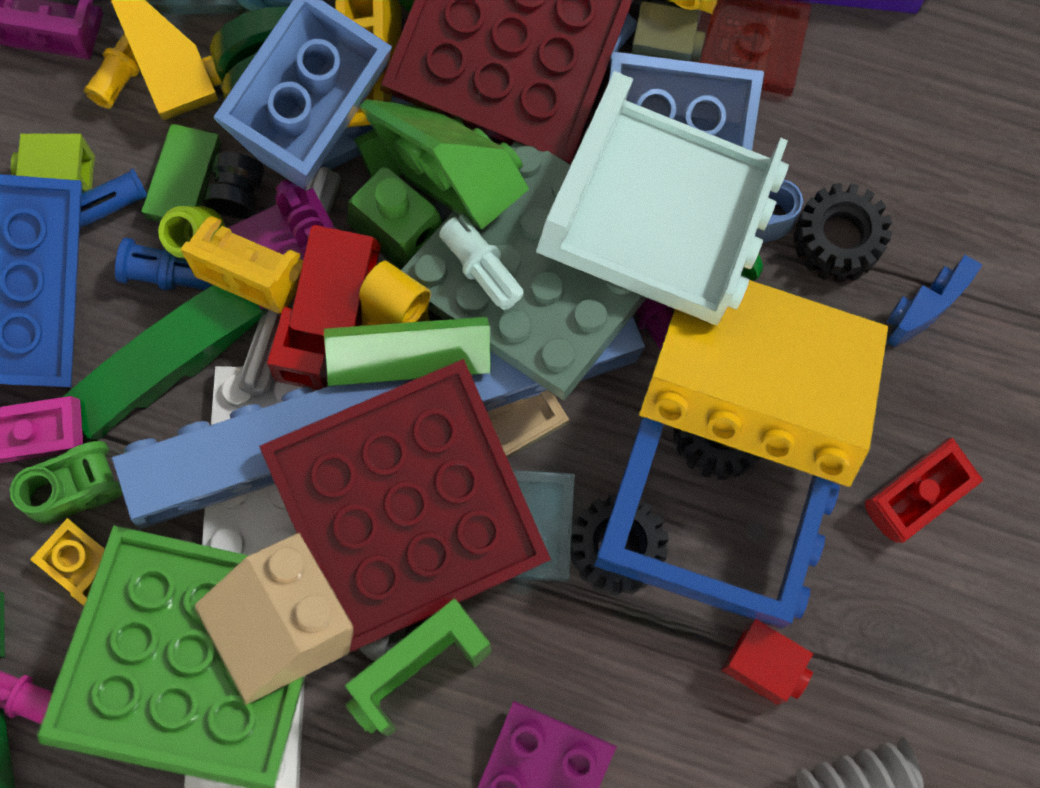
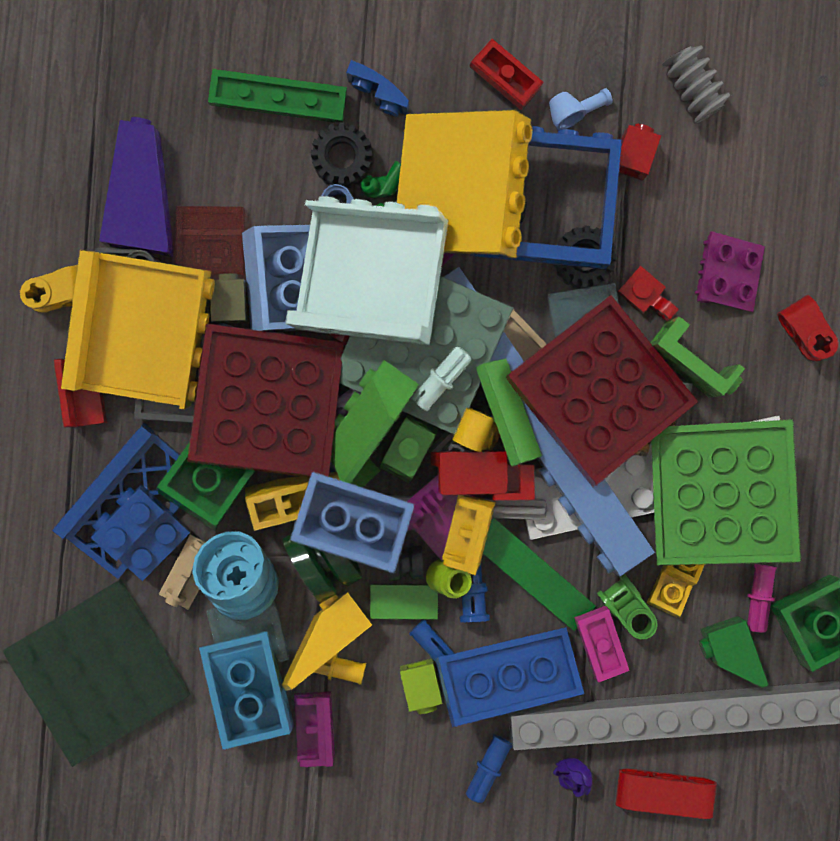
camera: 95 degrees left, 15 degrees up
(275, 619) = (695, 448): tan slope -> none
(544, 627) = (644, 291): none -> red plate
(788, 272) = (382, 185): none -> green arm
(850, 573) = (568, 111): none -> light blue bar
(943, 168) = (277, 96): none -> green plate

